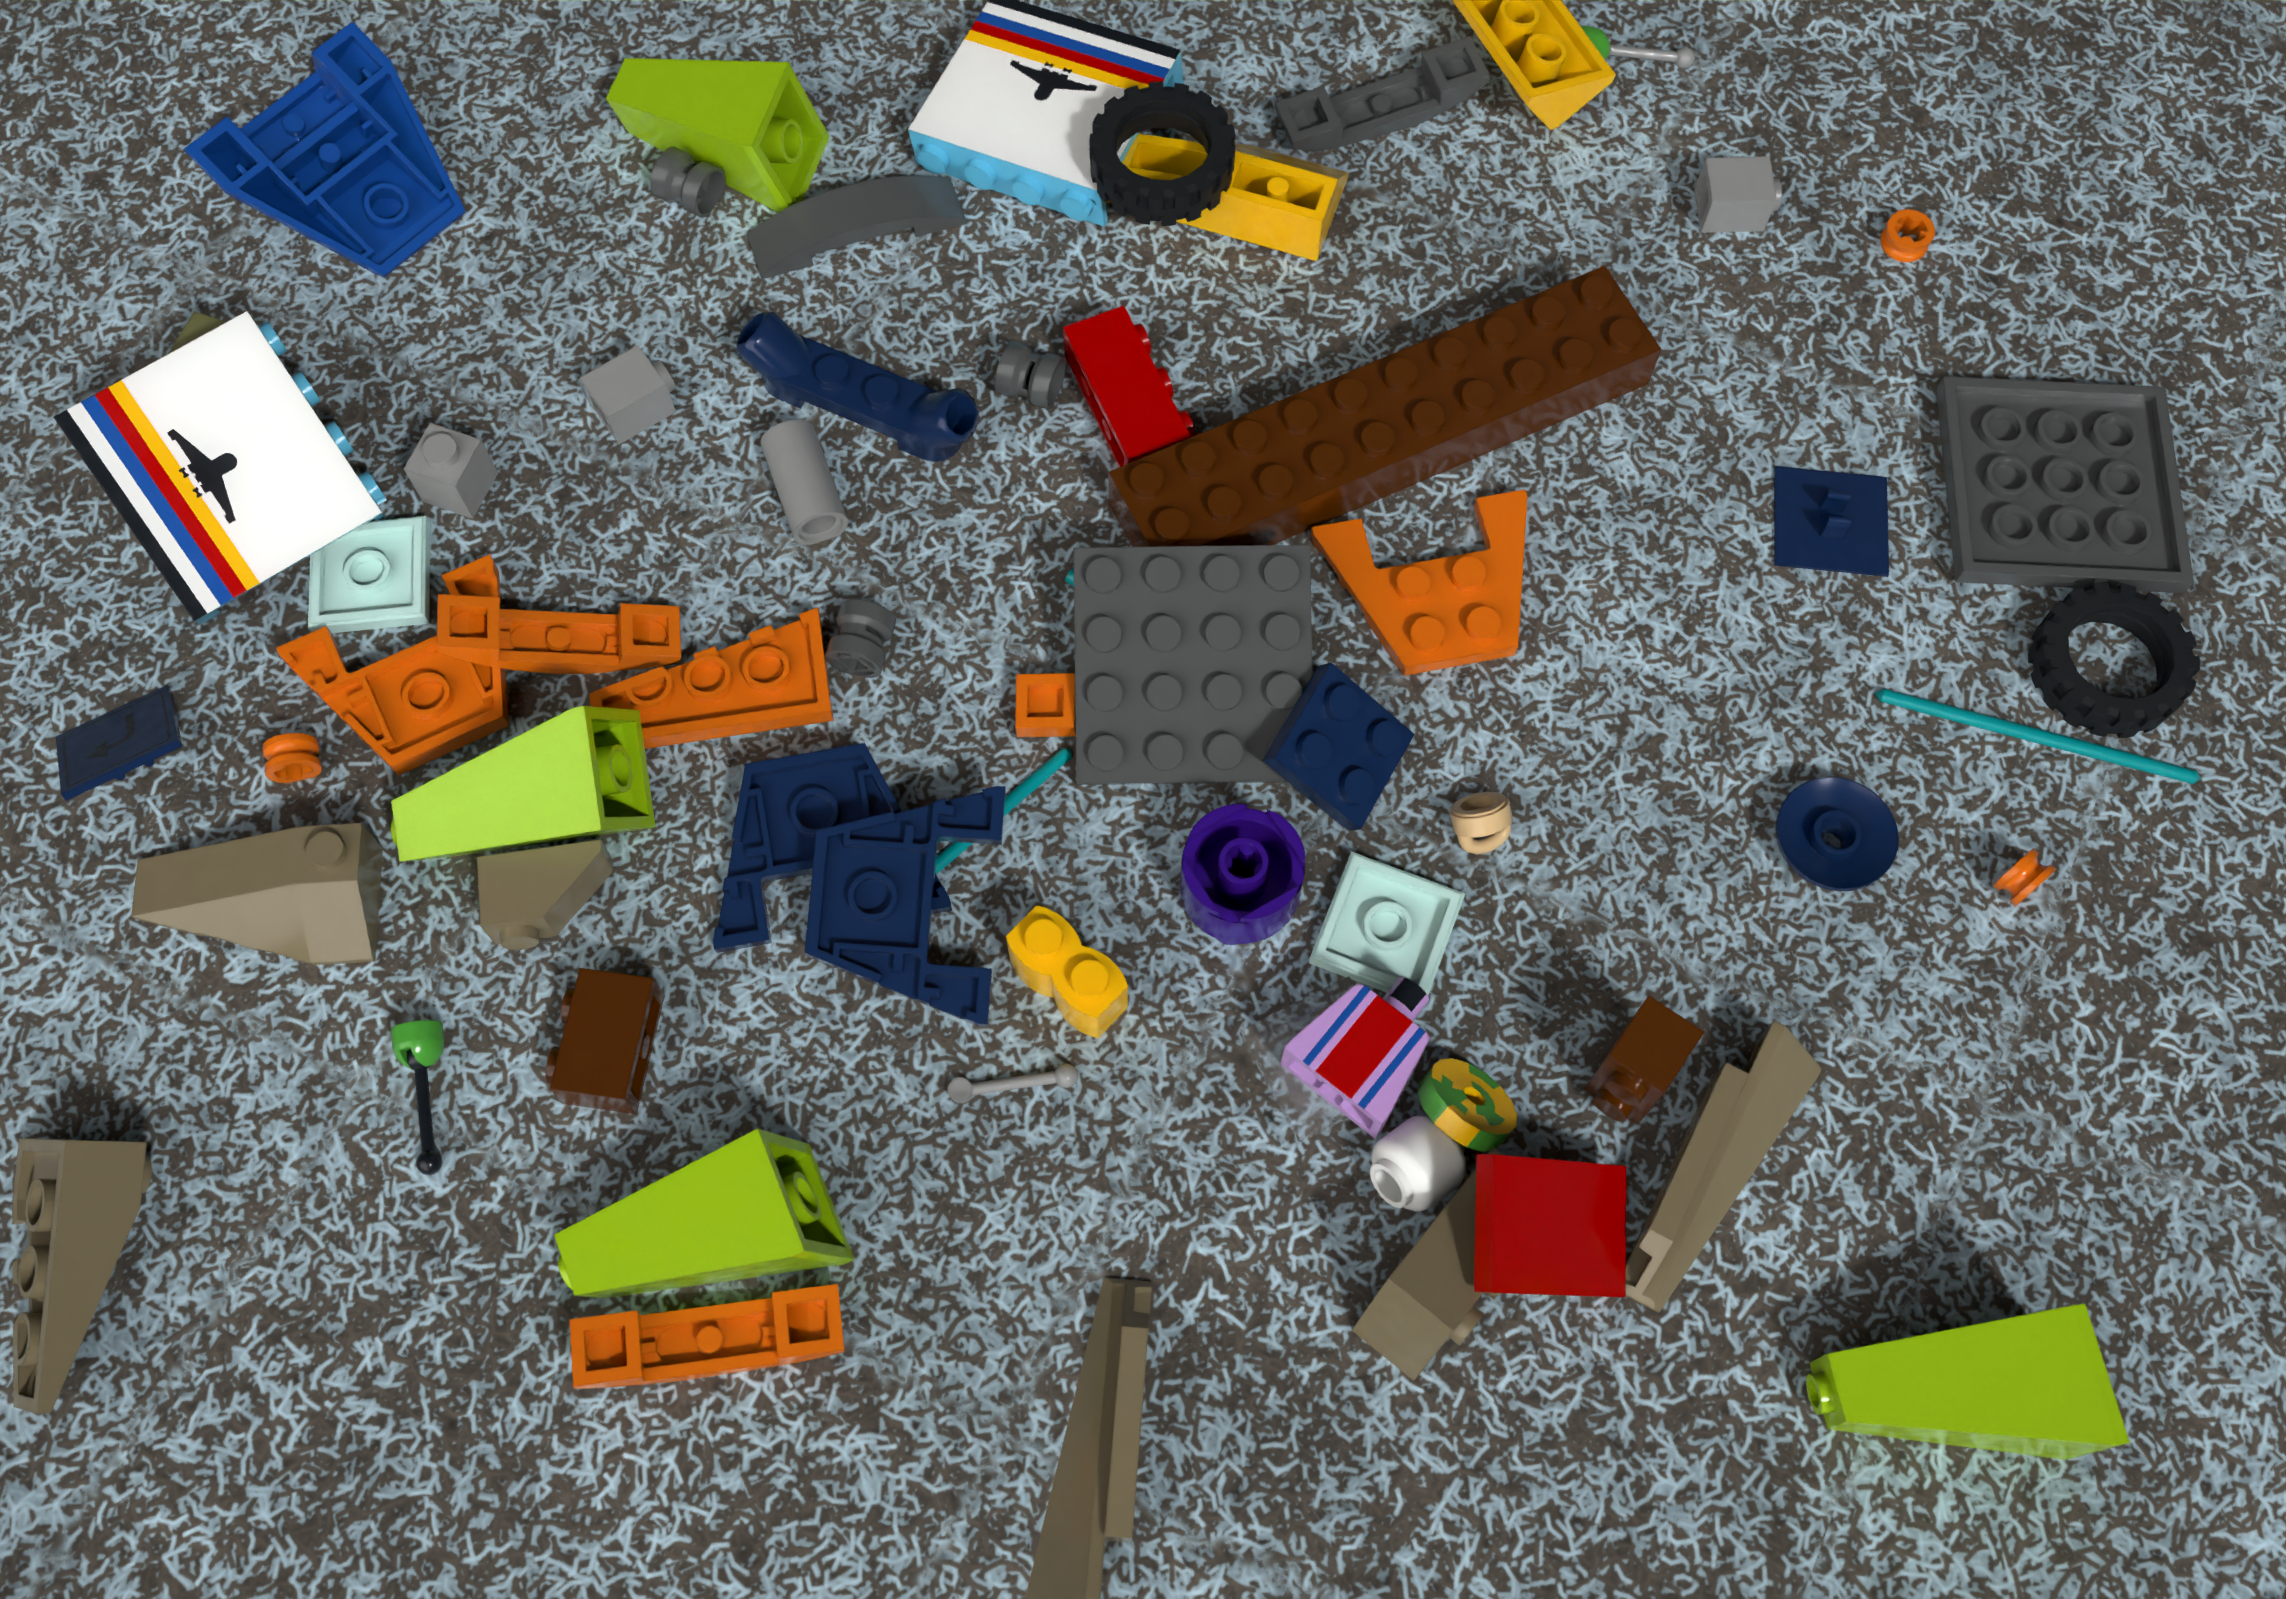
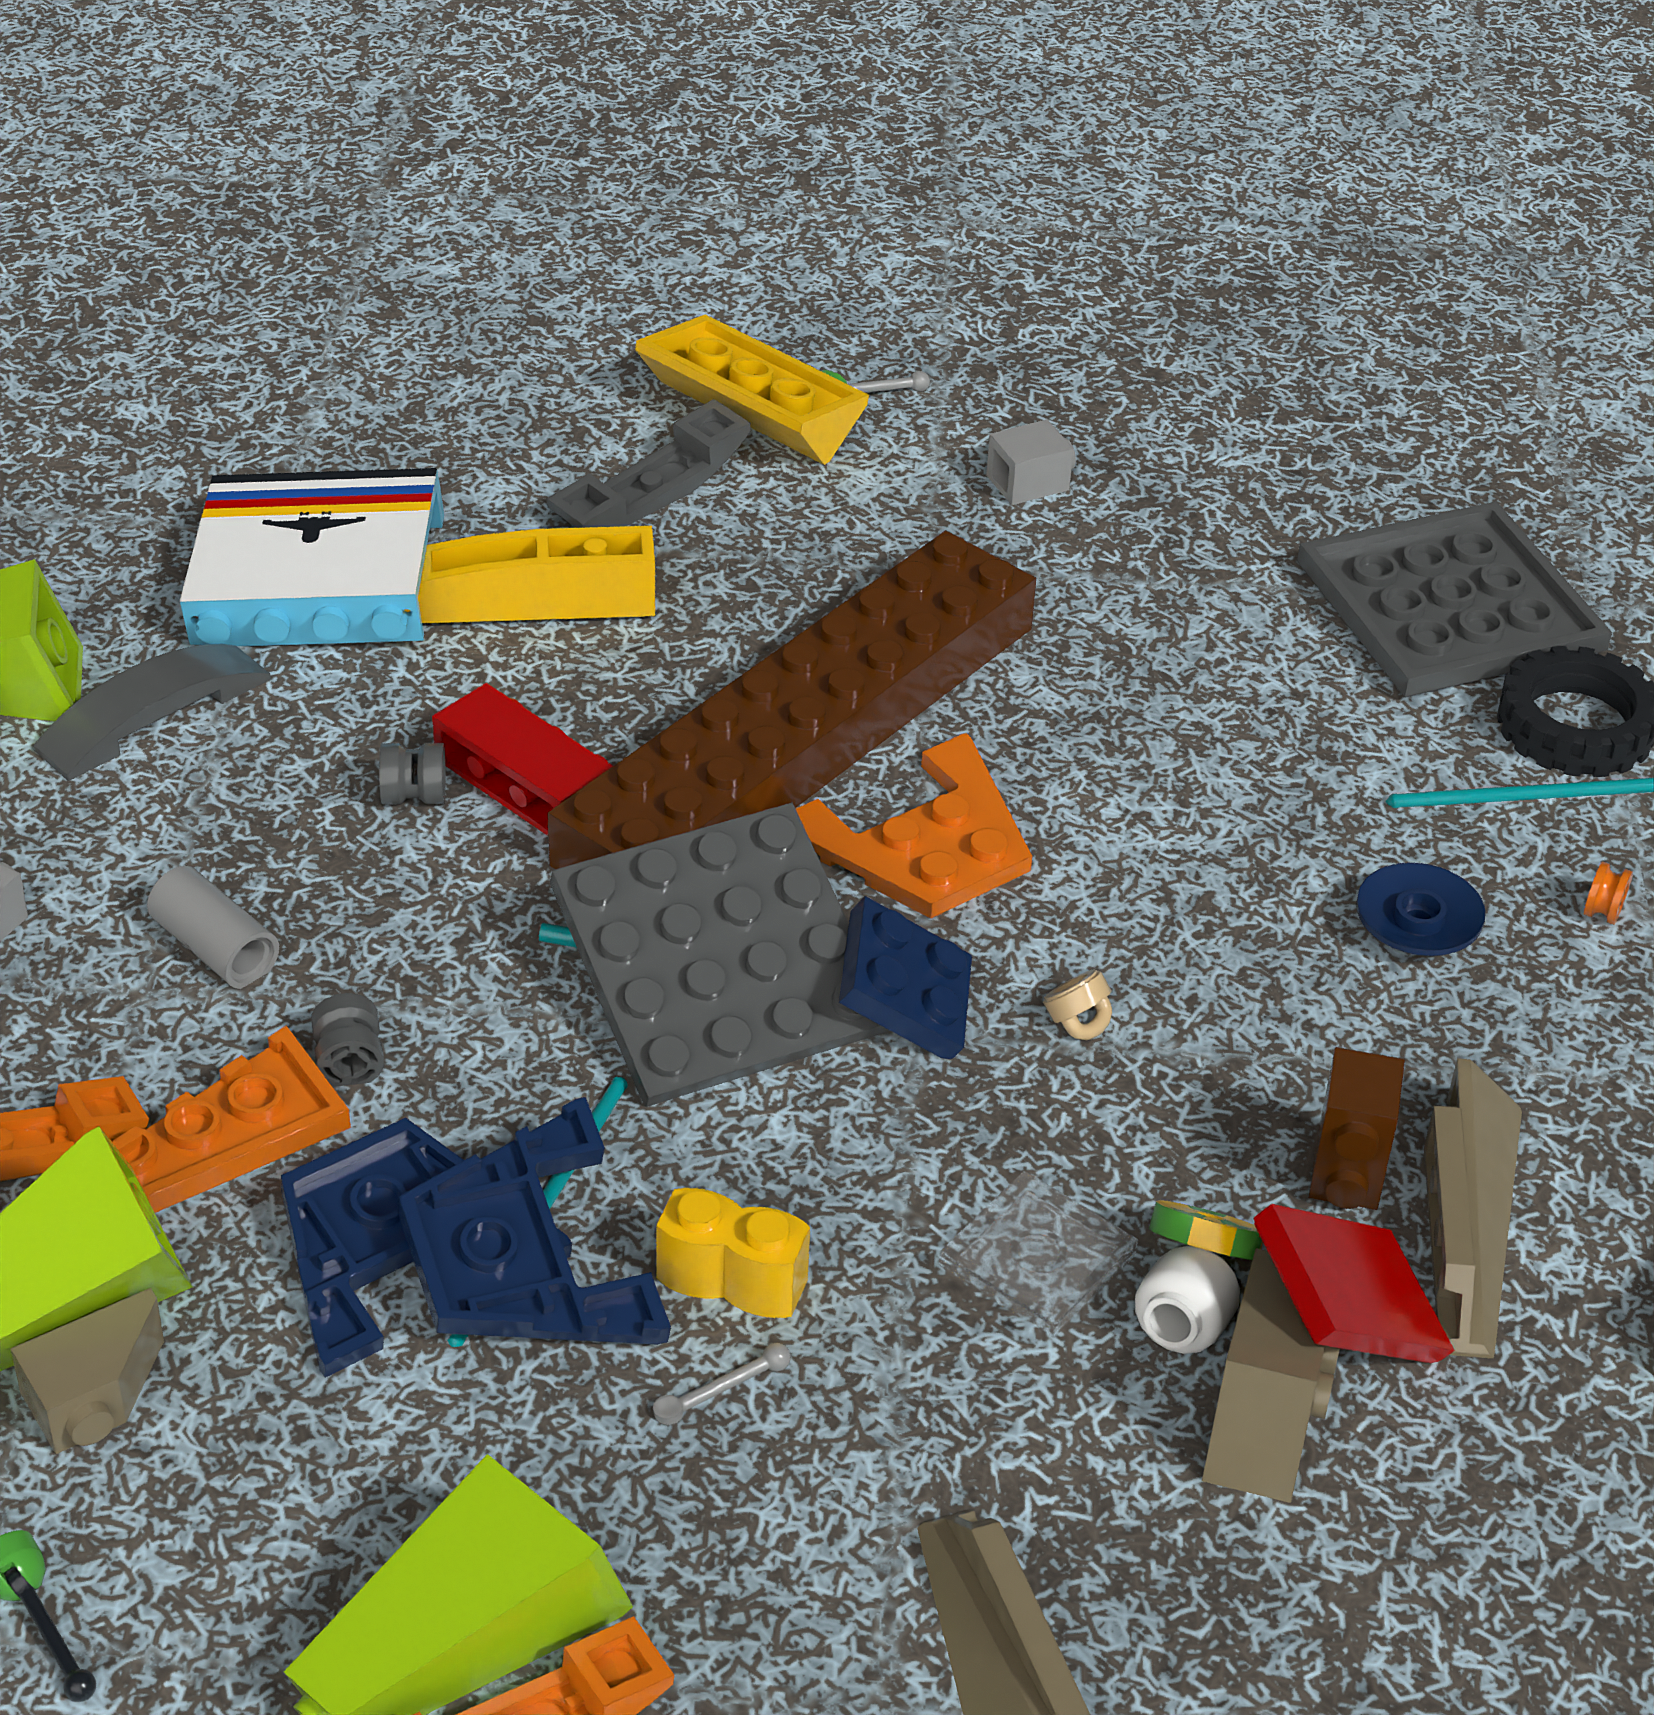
camera: 25 degrees left, 25 degrees down
(605, 1040) = (245, 1484): reddish brown brick -> none
(803, 371) = (152, 834): dark blue plate -> none
(1045, 705) = (579, 1040): orange plate -> none
(1162, 108) = (467, 578): black tyre -> none
(1252, 843) = (869, 1110): dark purple brick -> none
(1362, 1051) = (1077, 1217): torso -> none
(1386, 925) = (1037, 1123): light aqua tile -> none
(1831, 521) = (1264, 685): dark blue piece -> none
(1910, 223) = (1202, 457): orange bush -> none

